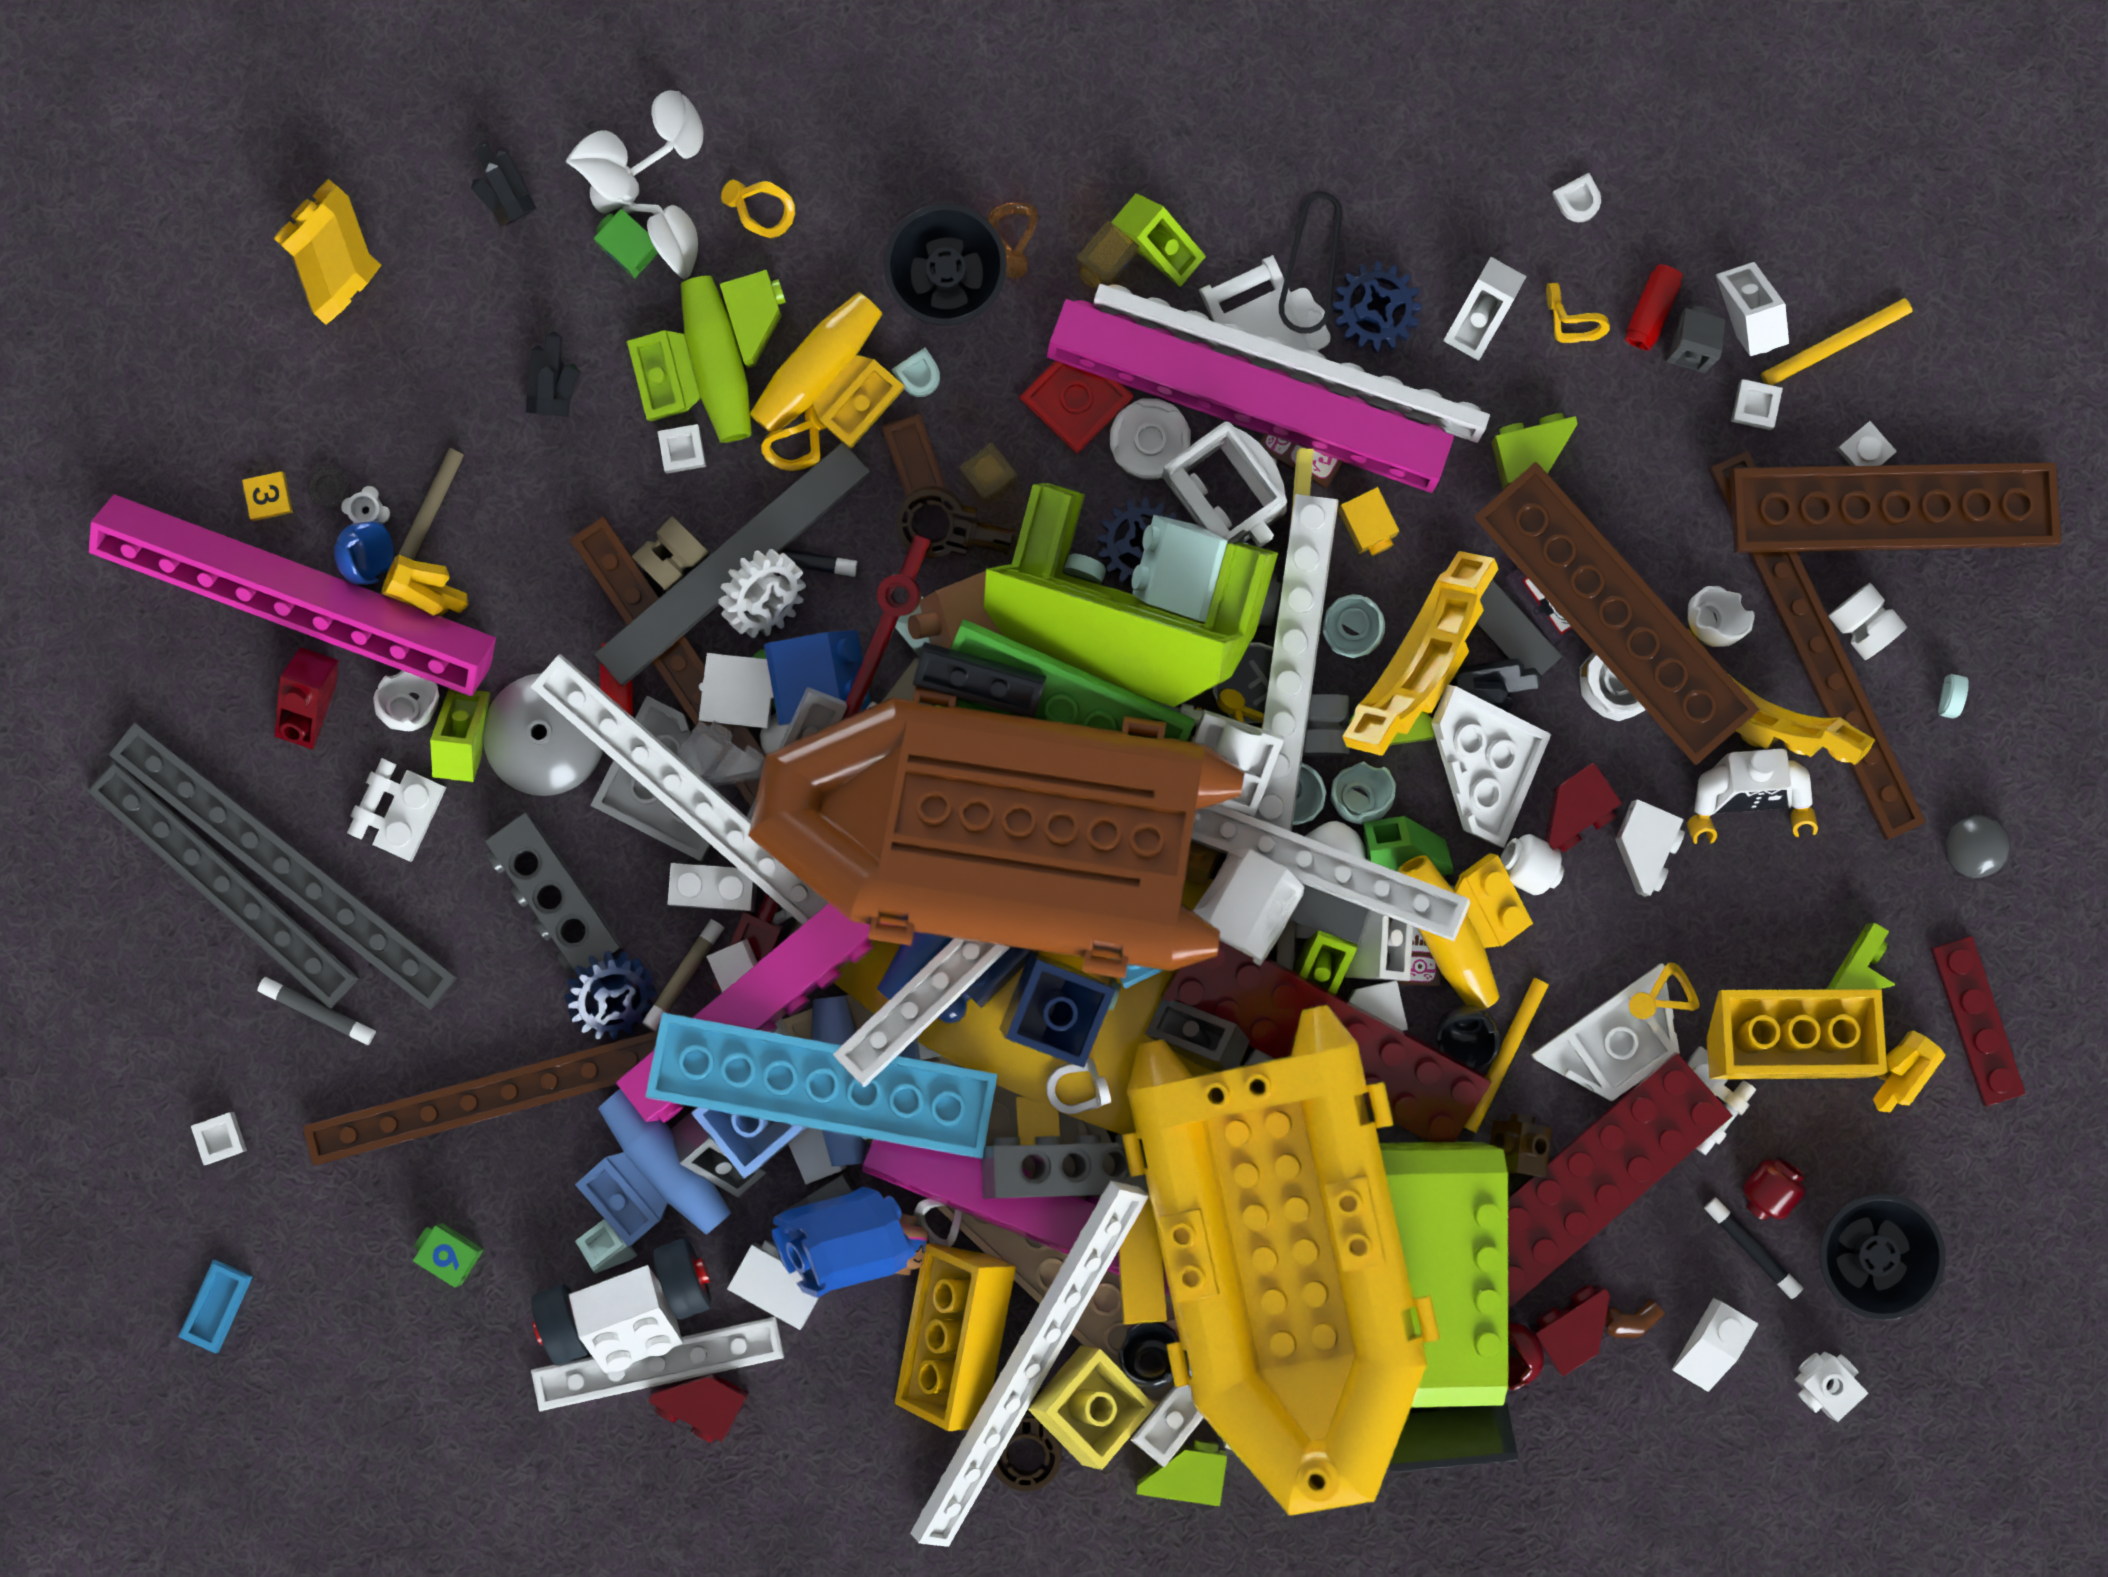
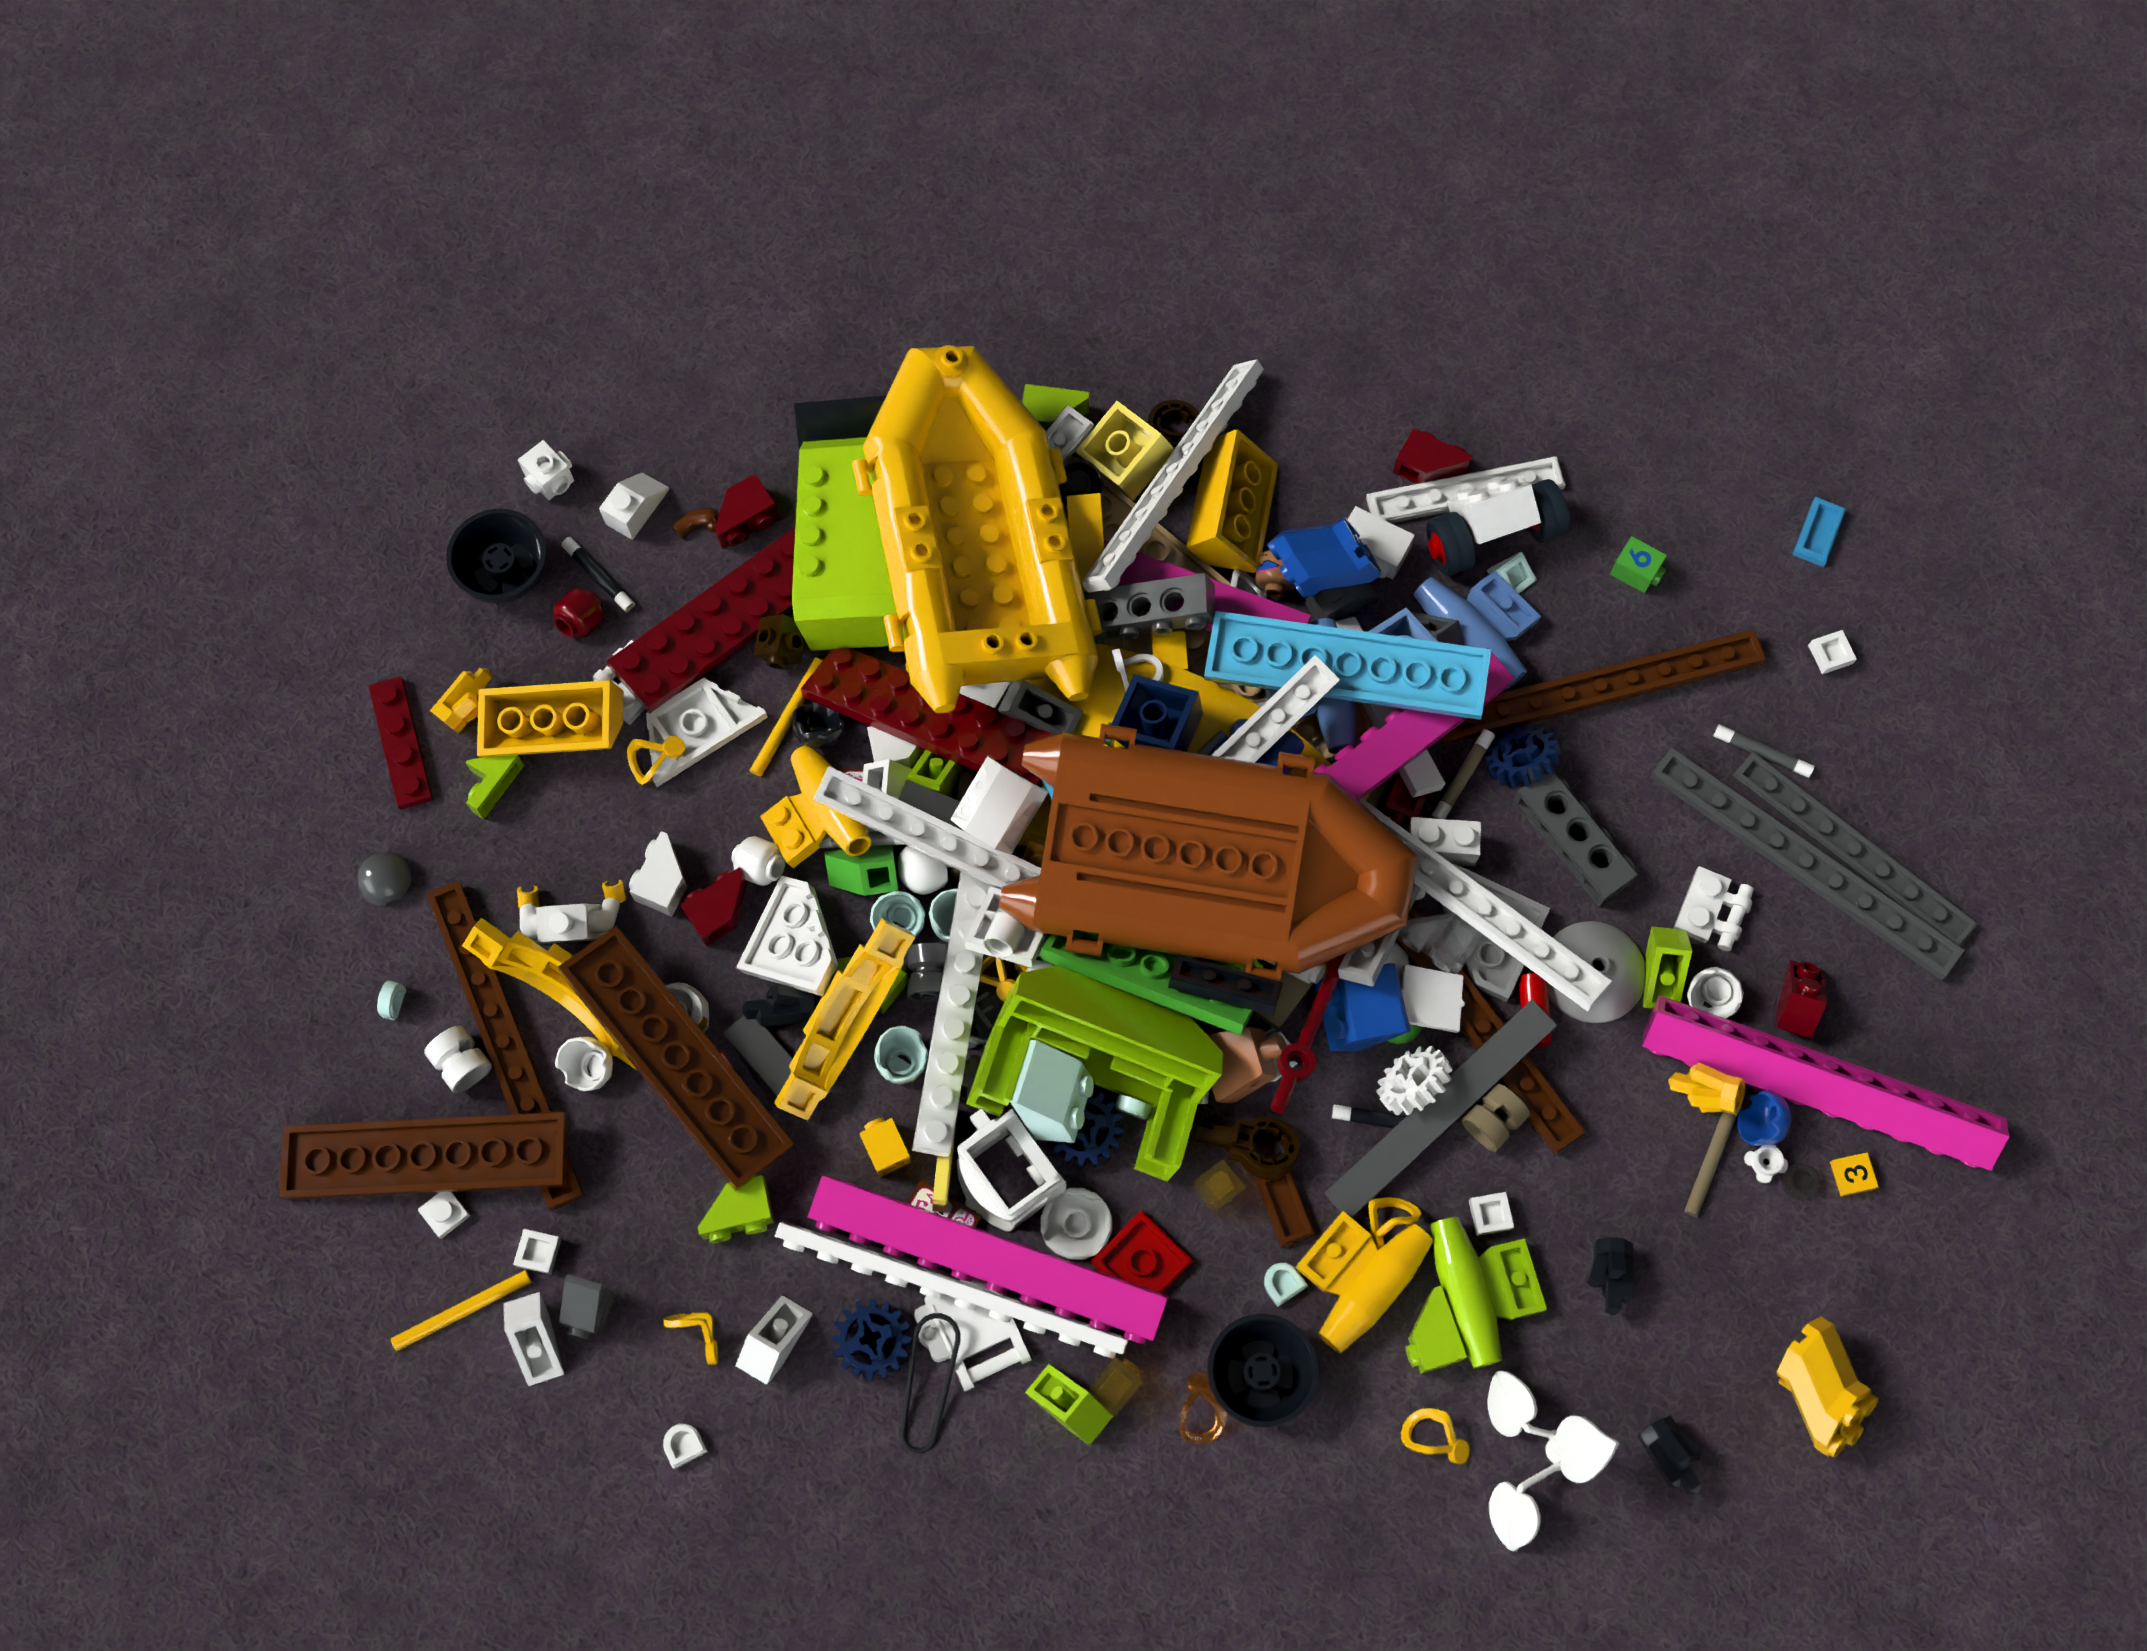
camera: 175 degrees right, 15 degrees down
(625, 242) = (1555, 1400): bright green brick -> none
(1530, 1362) = (784, 490): dark red hair -> none
(1653, 307) = (622, 1341): red piece -> none

